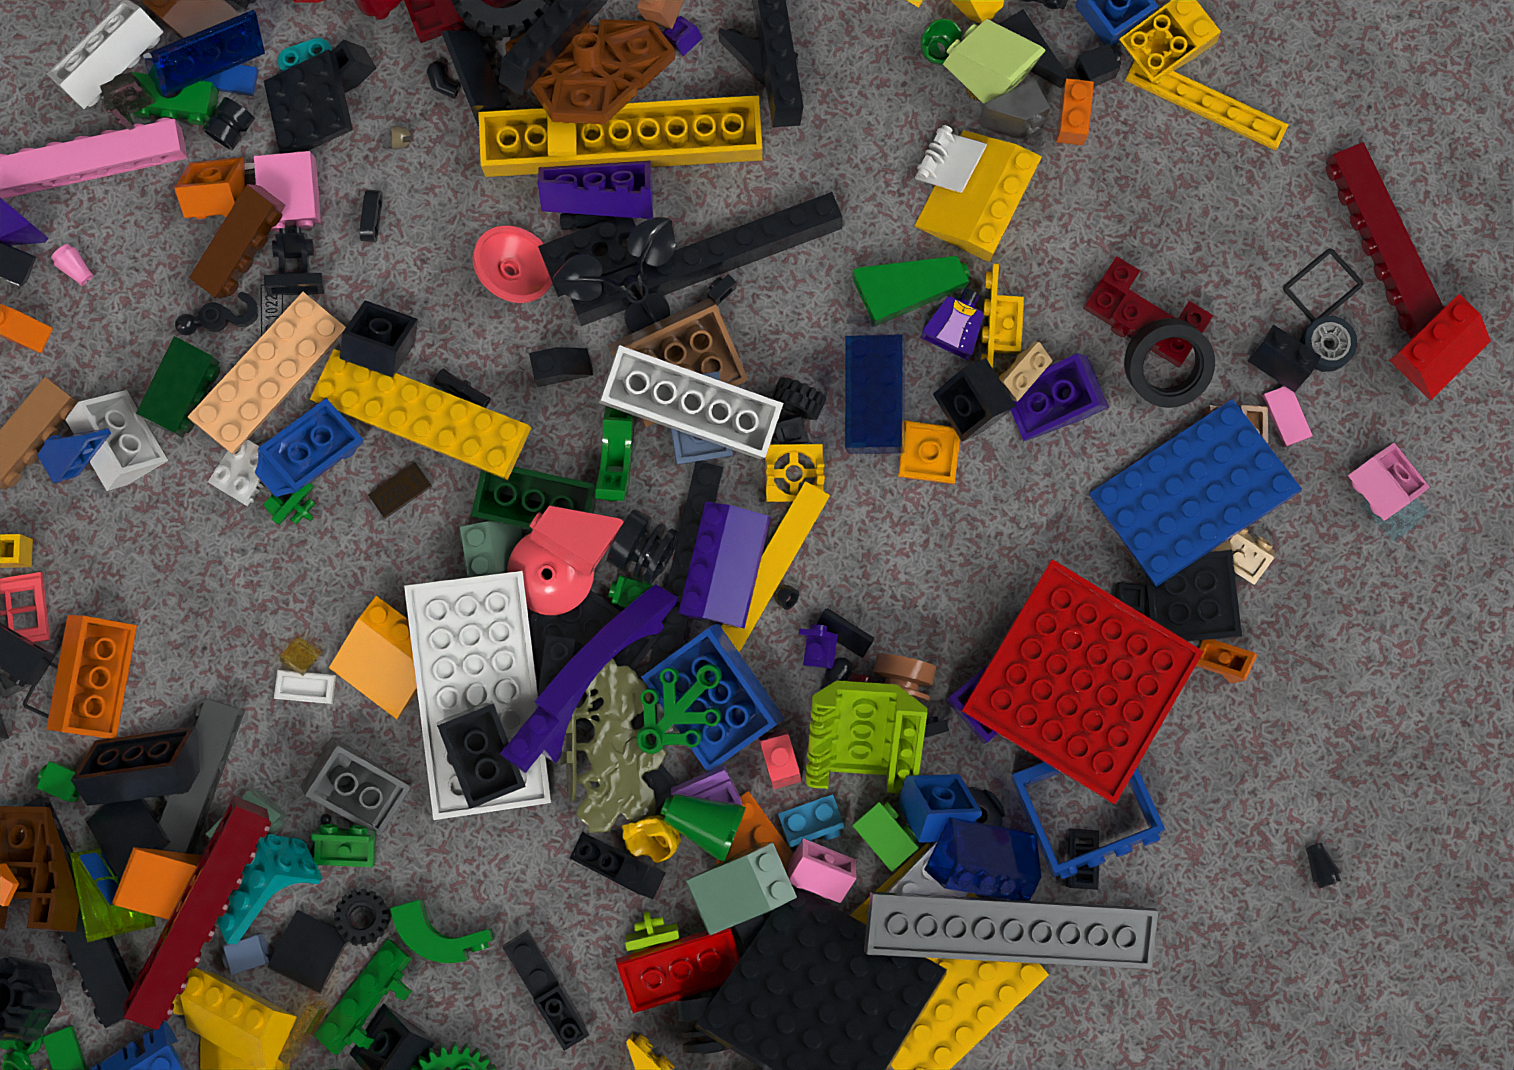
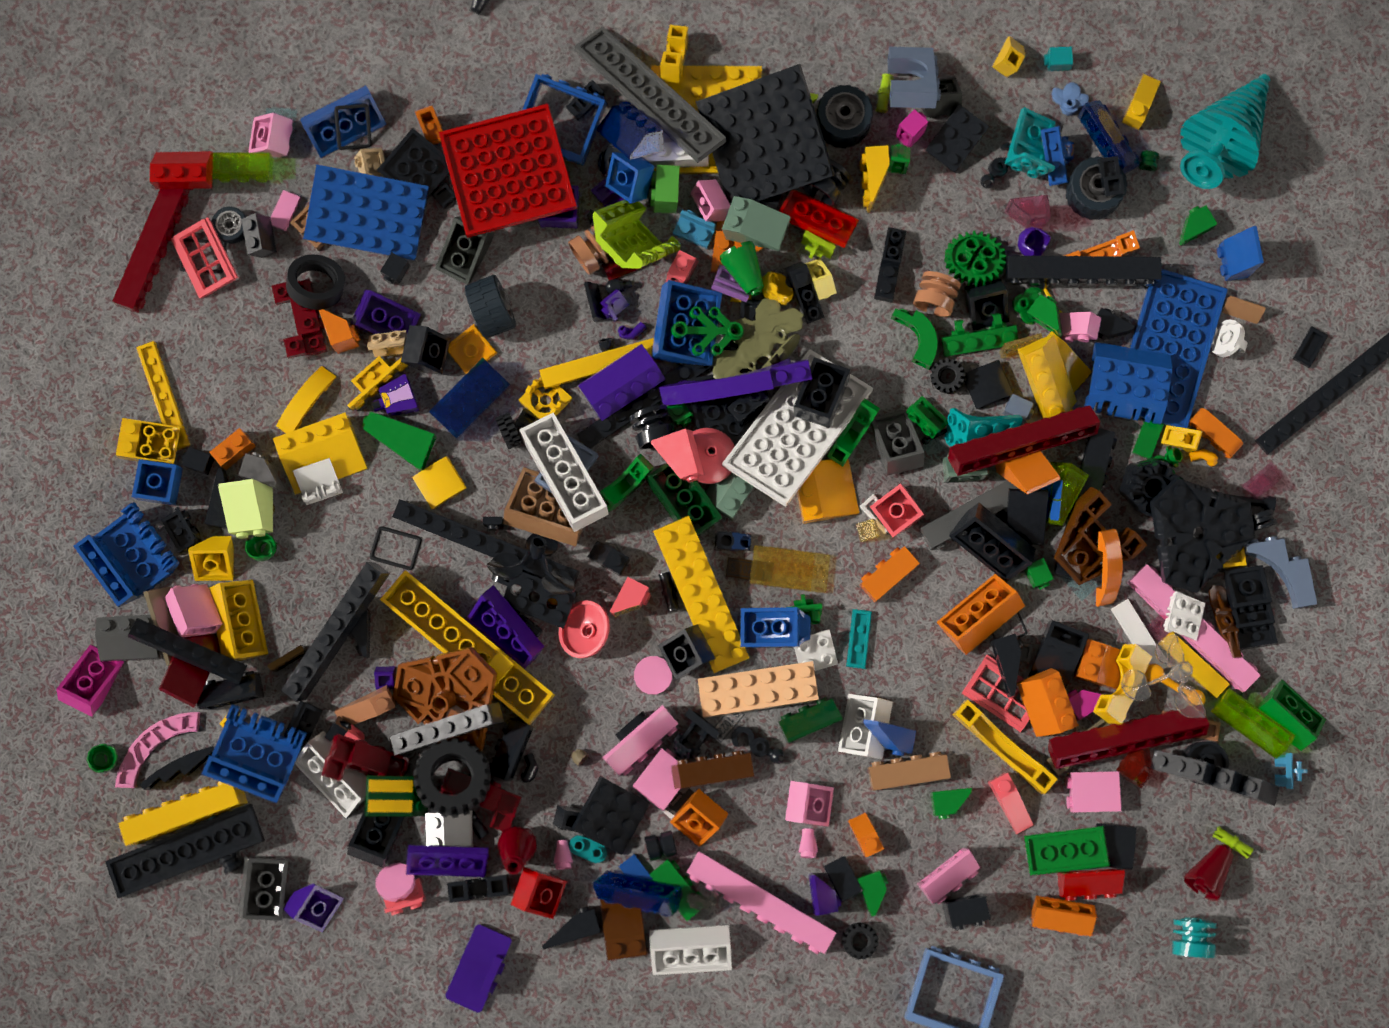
camera: 135 degrees left, 0 degrees up
(106, 304) = (809, 803): none -> bright pink slope
(207, 528) = (859, 639): none -> teal tile
(233, 627) = (888, 573): none -> orange brick
(282, 706) = (897, 510): none -> coral slope
(322, 24) = (562, 855): none -> bright pink cone
(341, 224) = (640, 741): none -> bright pink slope
(350, 533) = (789, 569): none -> clear yellow tile
(399, 287) = (652, 675): none -> bright pink tile
(408, 735) = (853, 432): none -> green arch
(440, 505) = (732, 541): none -> leg
(457, 1003) = (939, 291): none -> nougat wheel
(492, 341) = (630, 597): none -> coral slope
(613, 898) = (821, 279): none -> light yellow slope
(770, 635) = (631, 333): none -> dark purple arm
(800, 198) = (399, 533): none -> black piece
(821, 279) = (439, 482): none -> yellow slope
(947, 764) = (605, 195): none -> dark purple slope
(950, 510) = (490, 306): none -> black wheel
(1030, 1011) = (674, 56): none -> yellow arch
(1040, 538) = (462, 254): none -> pearl dark grey slope
(1052, 235) = (305, 399): none -> yellow slope
(1089, 333) = (339, 332): none -> orange slope
(1100, 461) = (394, 269): none -> black brick
(1309, 302) = (219, 250): none -> coral piece
(1328, 573) = (352, 122): none -> blue slope
(1329, 596) = (338, 128): none -> black piece
(1382, 418) = (242, 166): none -> clear neon green brick

